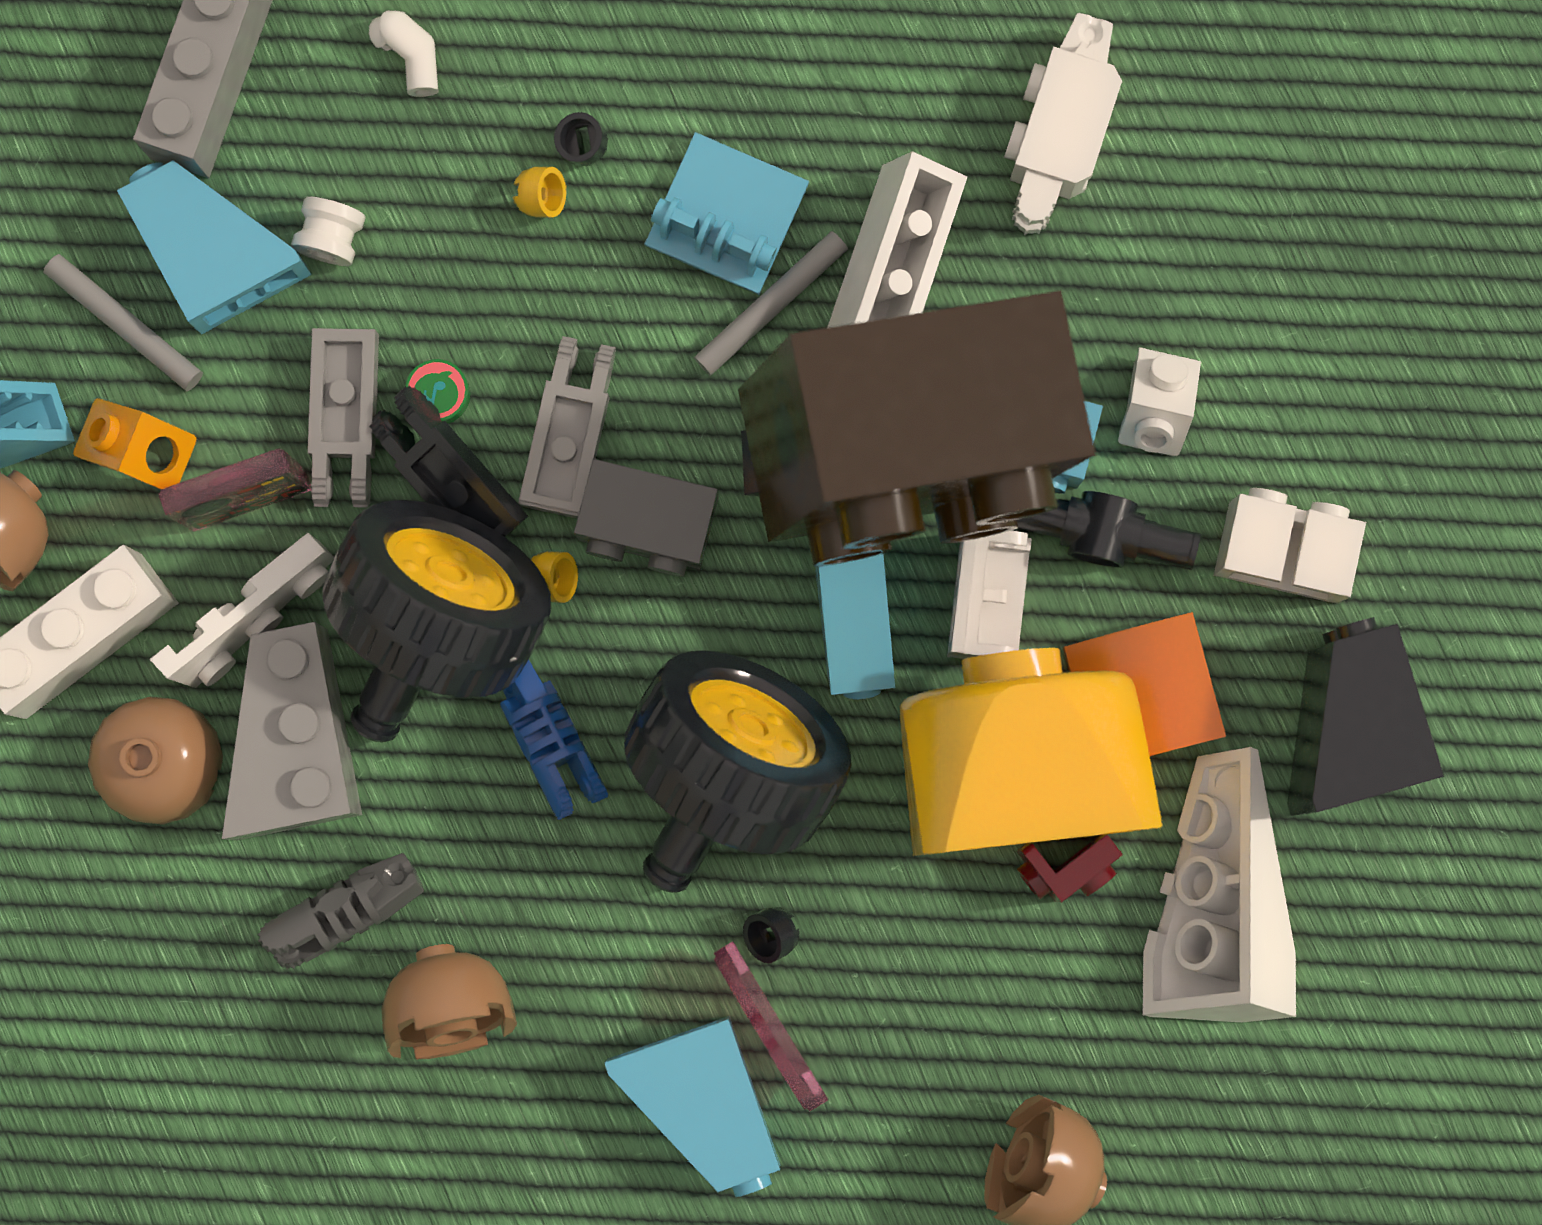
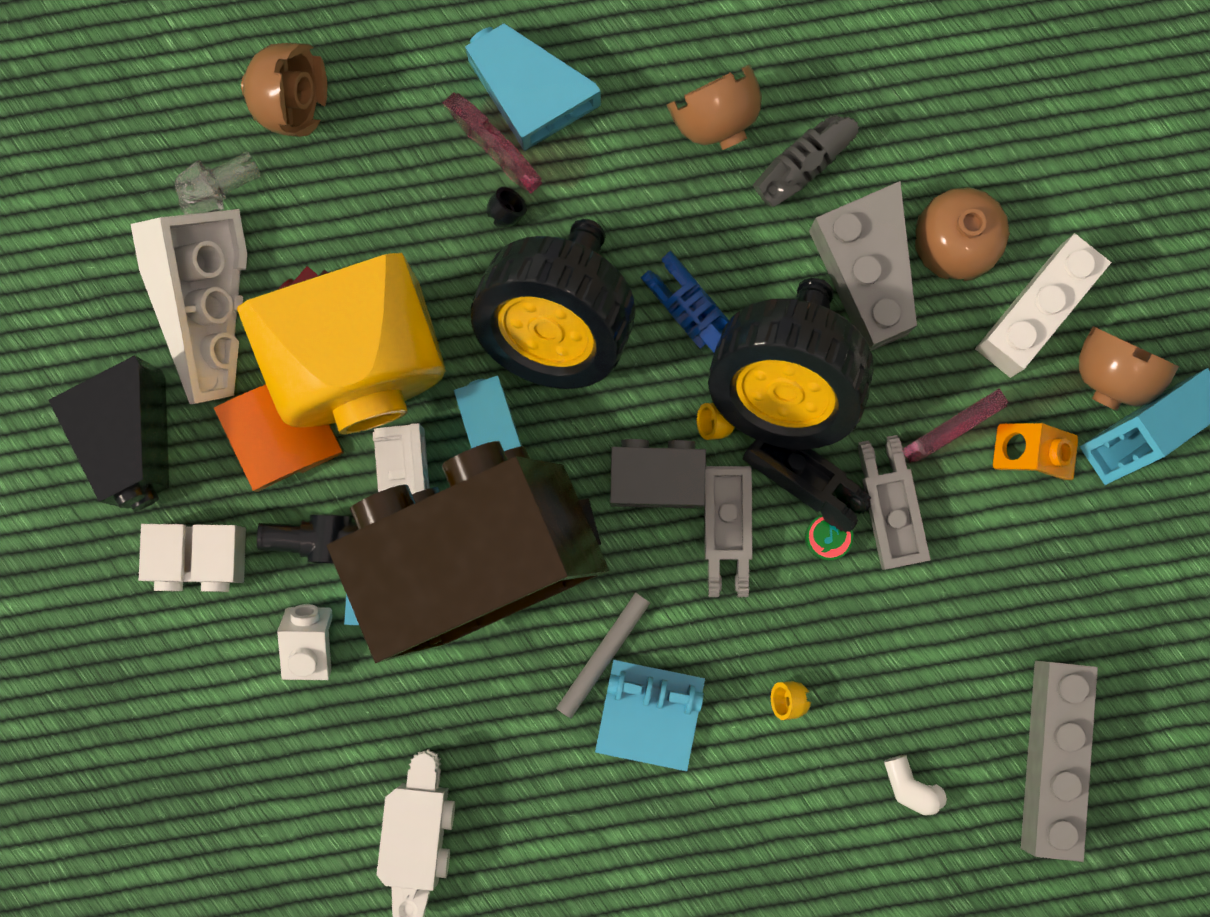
camera: 170 degrees right, 0 degrees up
(123, 322) = (1068, 538): light grey bar -> none
(207, 246) = (1024, 605): medium azure slope -> none
(223, 631) = (917, 346): white wing -> none
(328, 231) = (937, 635): white wheel -> none
(570, 141) = (777, 743): black hinge -> none
(899, 241) = (517, 704): white brick -> none
(1174, 1055) = (209, 186): none -> clear piece

